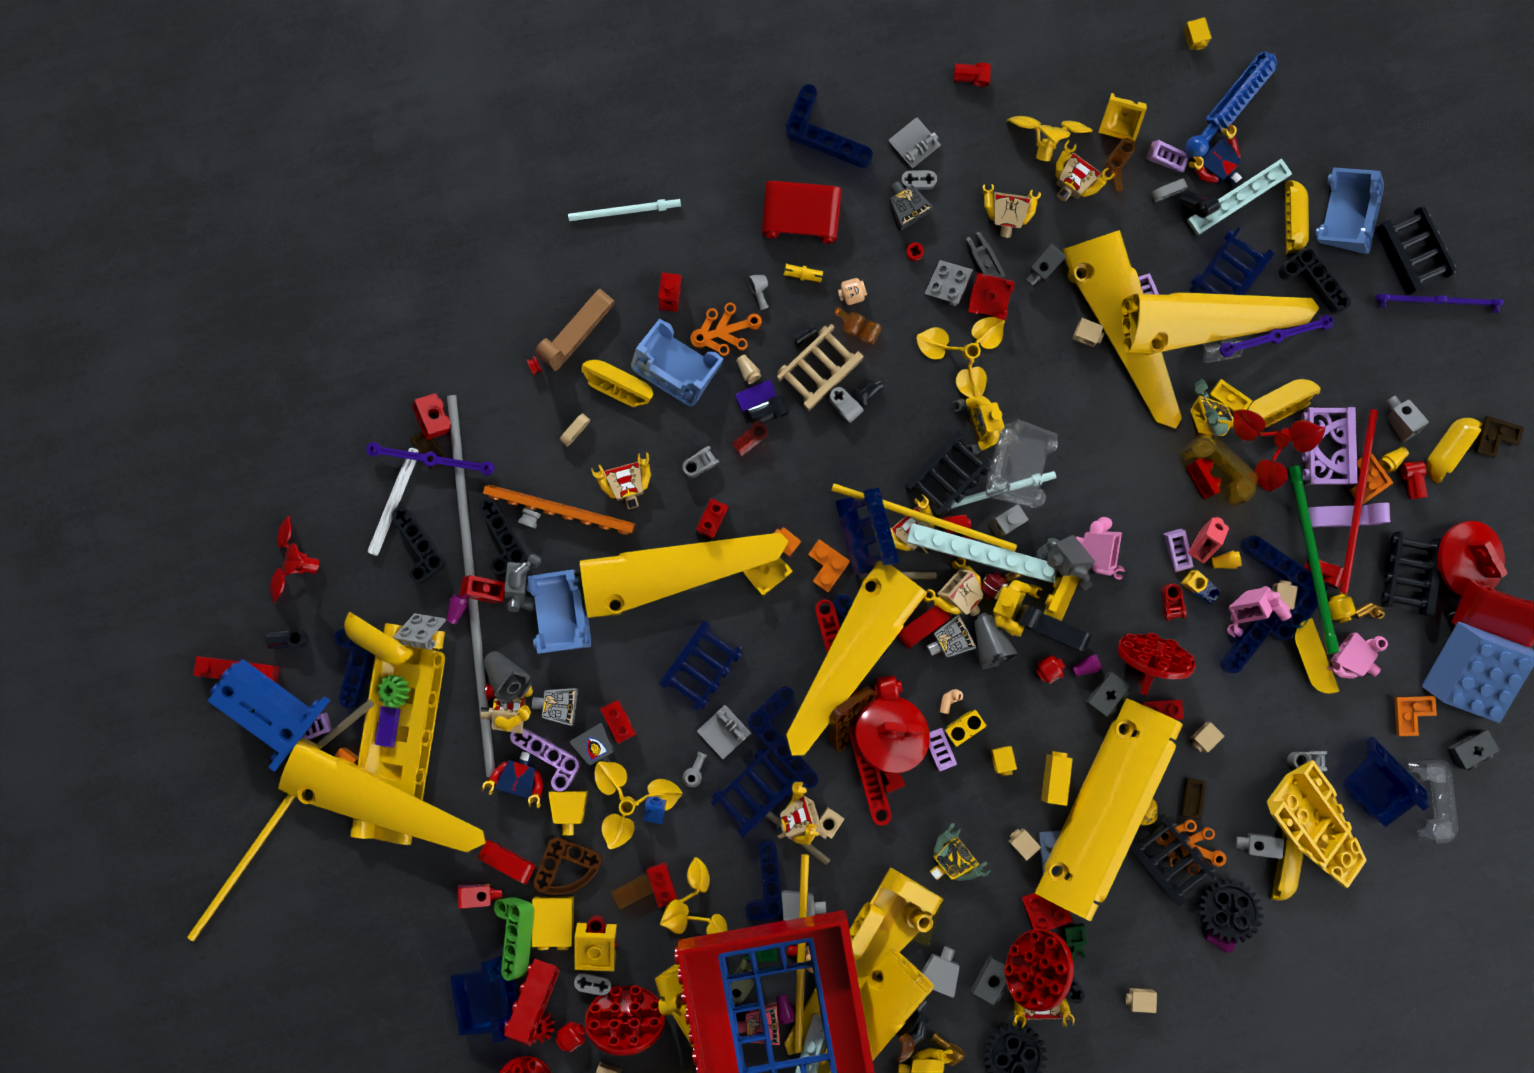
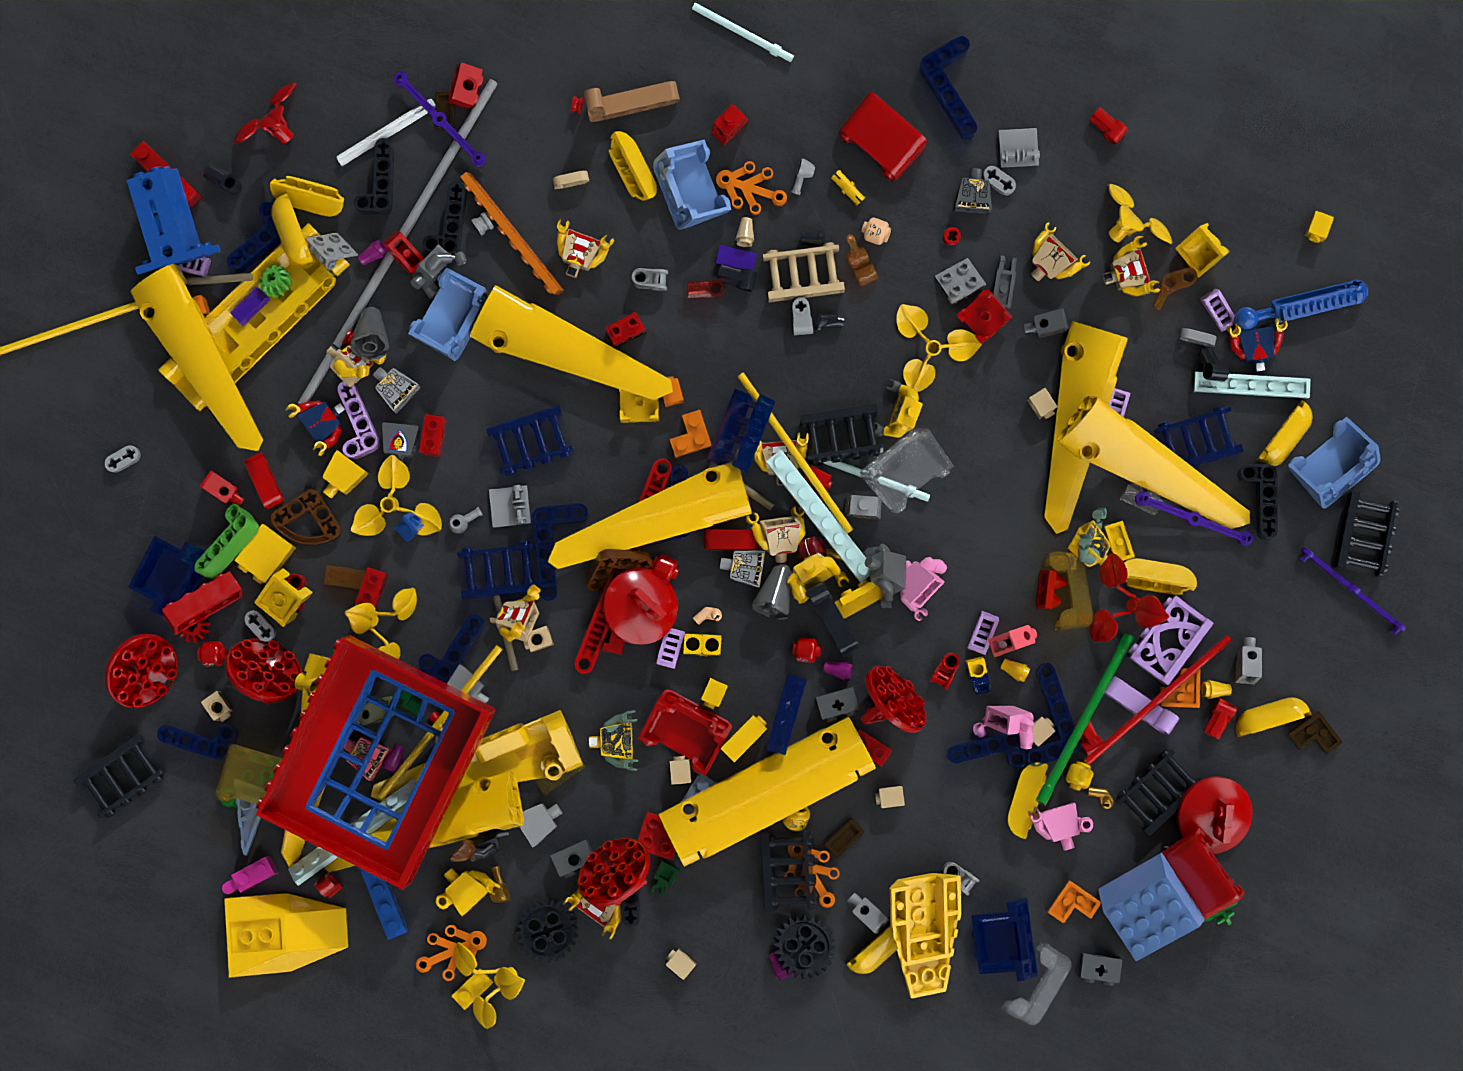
camera: 45 degrees right, 0 degrees up
(368, 600) = (309, 195): none -> yellow brick
(379, 933) = (124, 463): none -> light grey beam
(1004, 806) = (686, 730): none -> red windscreen
(1077, 735) = (786, 714): none -> clear blue fence

